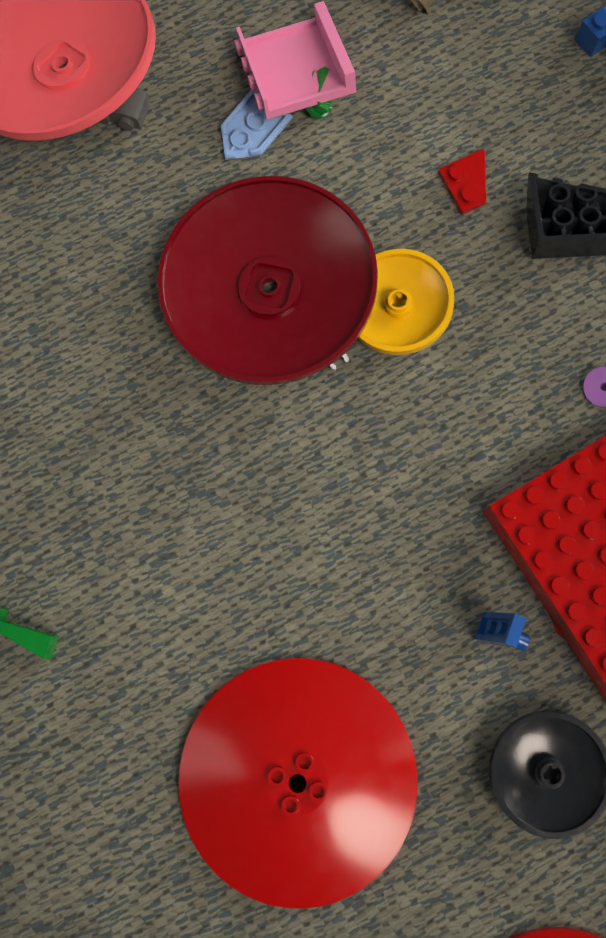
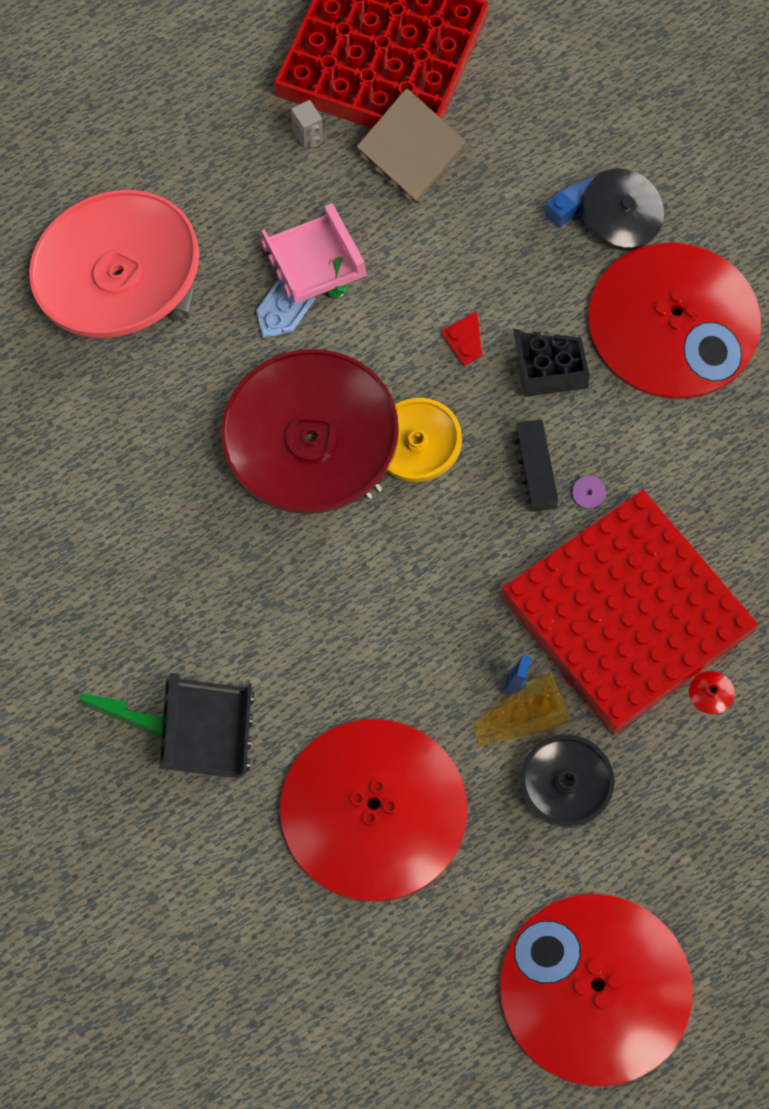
camera: 10 degrees left, 10 degrees down
(96, 653) = (206, 727): none -> black panel
(502, 671) = (529, 711): none -> clear yellow wedge
(542, 347) = (536, 466): none -> black brick

